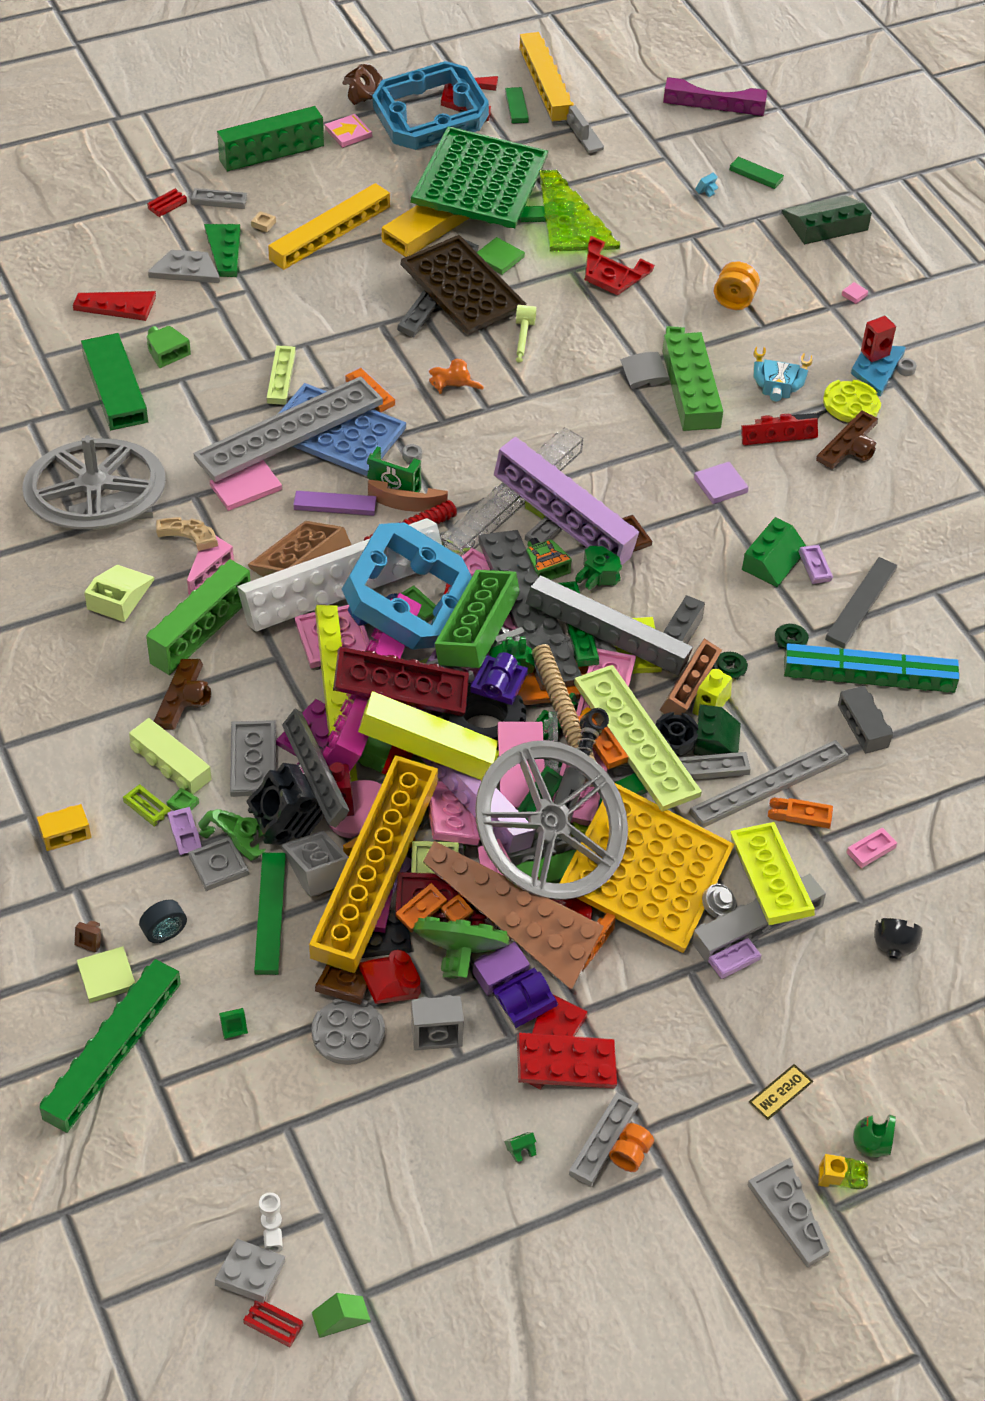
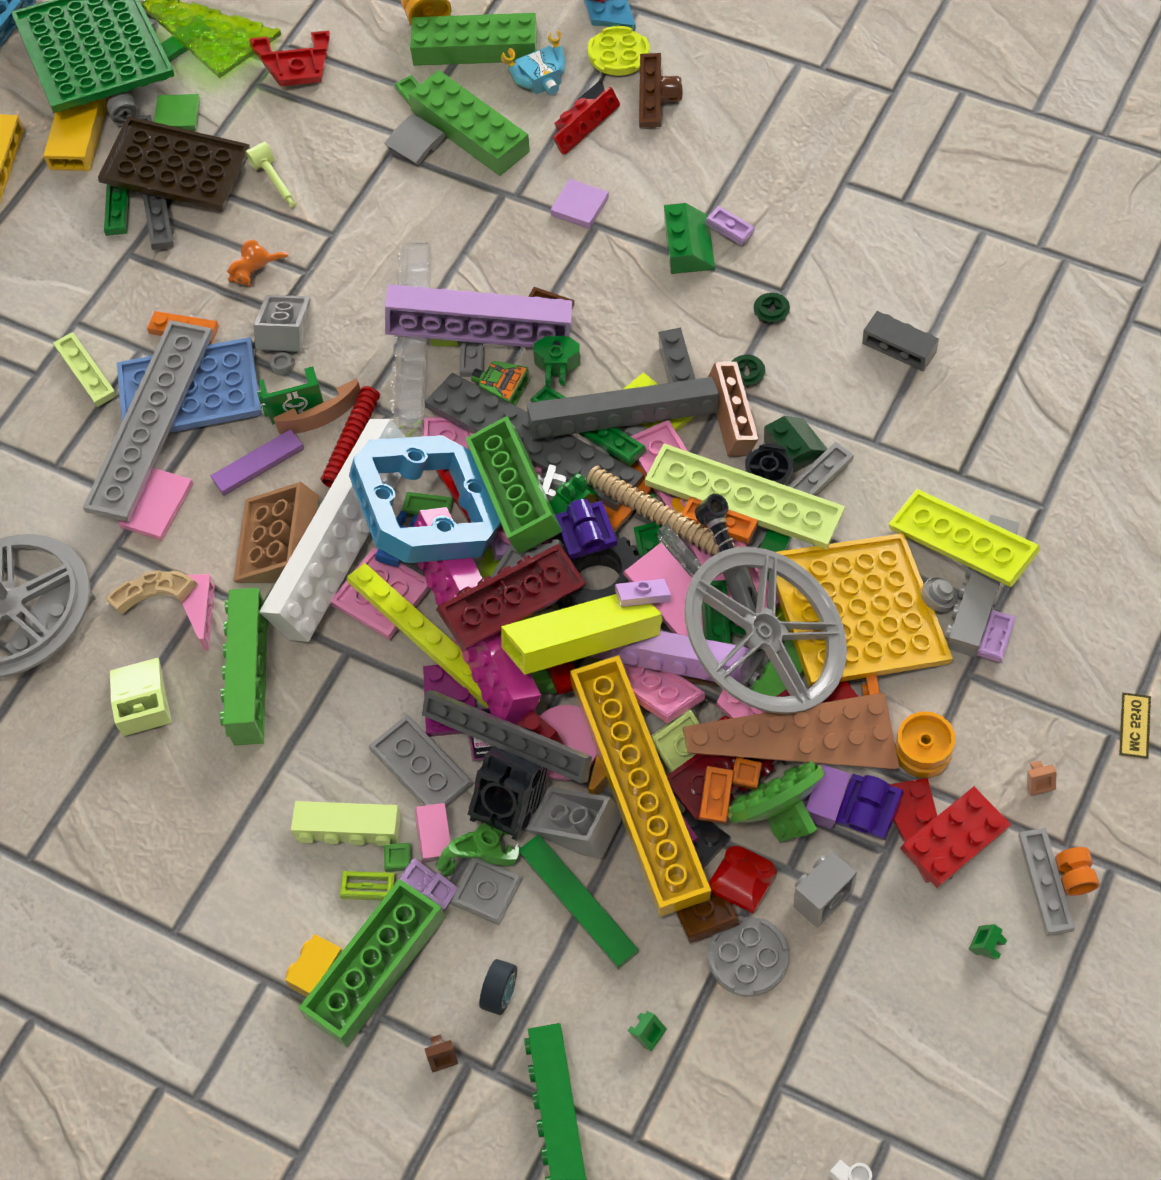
camera: 30 degrees left, 10 degrees up
(100, 848) = (372, 963): none -> bright green brick
(106, 974) = (489, 1076): yellowish green tile -> none
(183, 692) = (297, 753): reddish brown plate -> none
(217, 796) = (432, 831): none -> bright pink hinge
(398, 292) = (116, 210): none -> green tile
(435, 427) = (281, 323): none -> light grey slope
(464, 227) = (120, 107): none -> light grey wheel
(492, 740) = (642, 592): none -> lavender plate
(605, 986) = (925, 744): none -> light orange wheel
(669, 1071) = (1041, 778): none -> nougat tile
(715, 687) = (762, 401): neon yellow torso -> none
(750, 328) = (472, 38): none -> bright green brick
(768, 784) = (875, 457): light grey tile -> none
(801, 812) = (927, 463): orange hinge -> none
(861, 602) = (797, 235): dark grey tile -> none
(871, 668) = (861, 290): green brick -> none
(871, 847) = (1009, 453): bright pink plate -> none
(896, 937) = (1106, 520): black cylinder -> none

